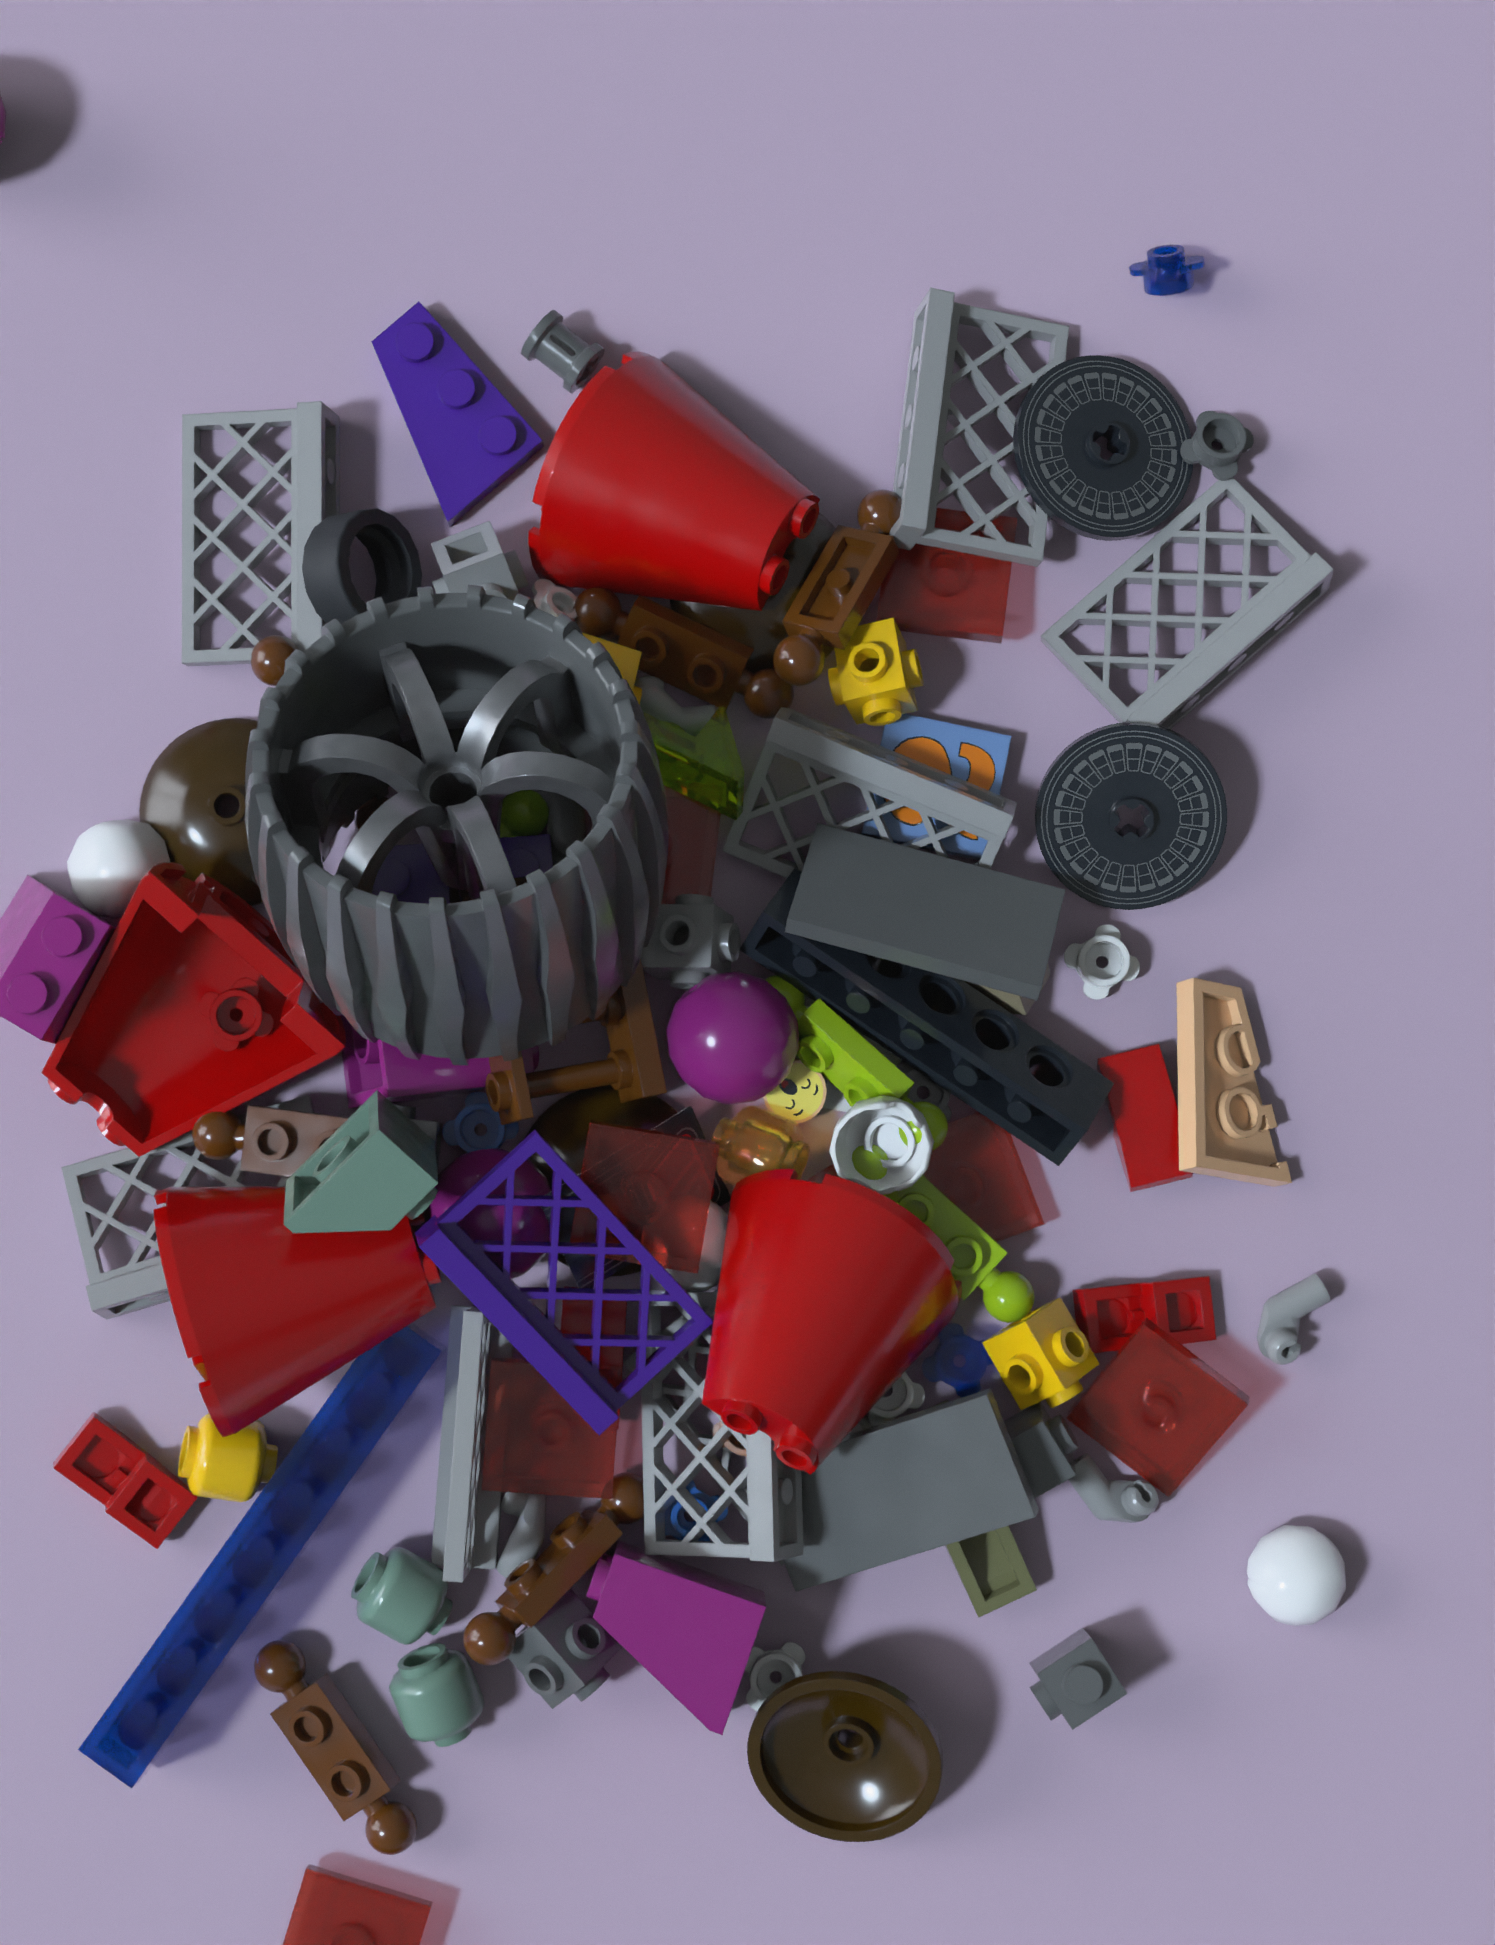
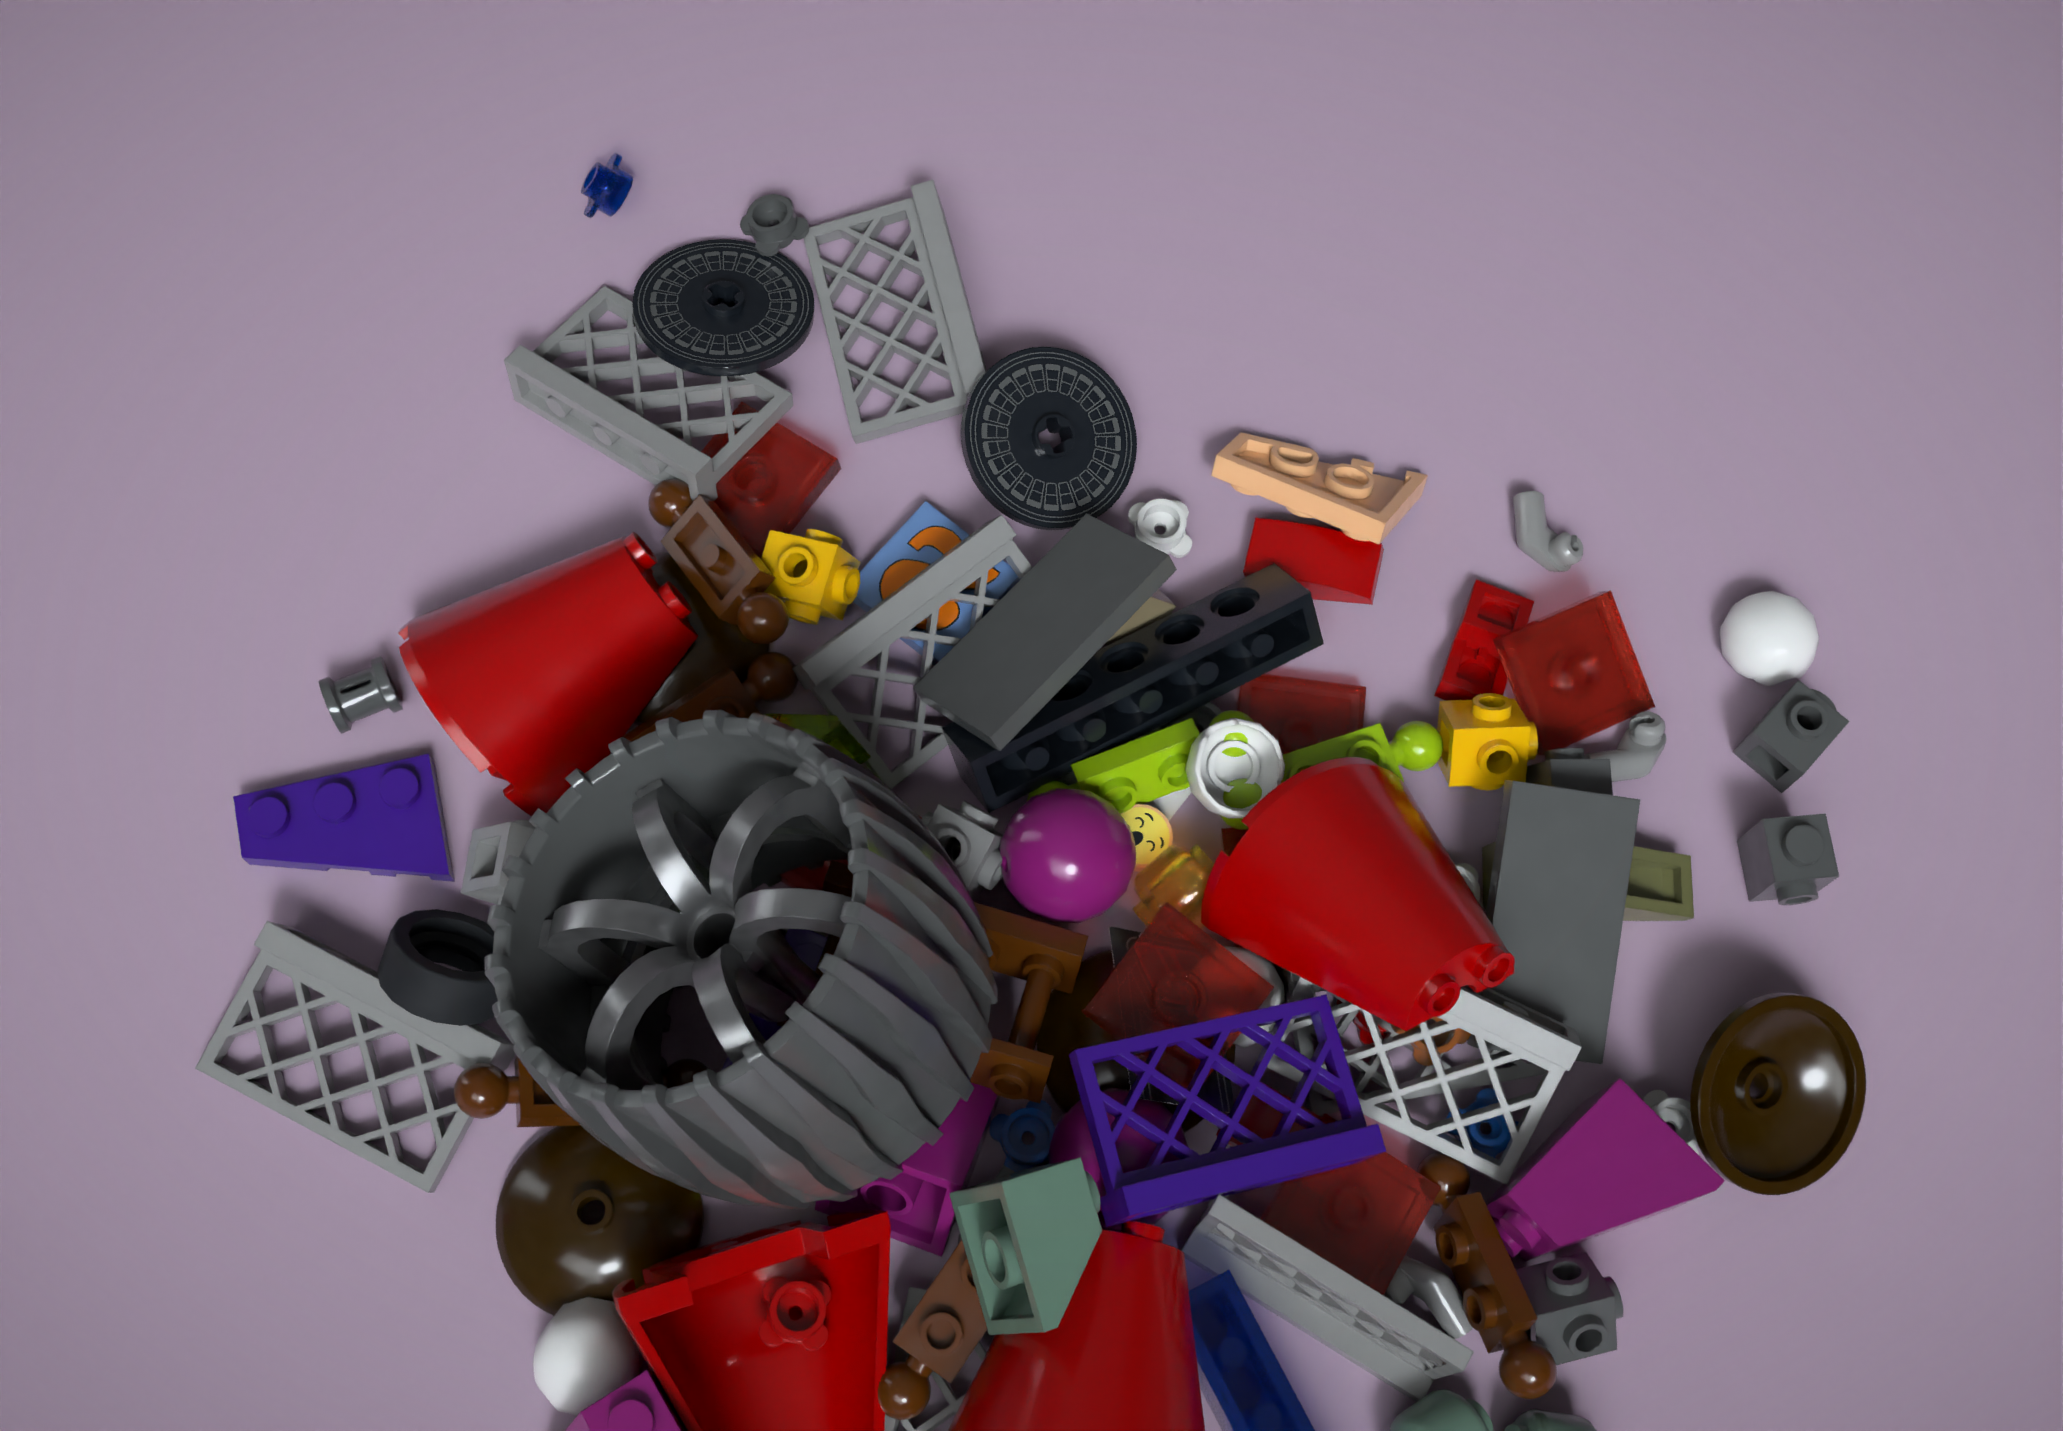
camera: 60 degrees left, 15 degrees down
(941, 1365) = (1467, 810): clear blue plate -> none
(1205, 1635) = (1791, 736): none -> dark grey brick

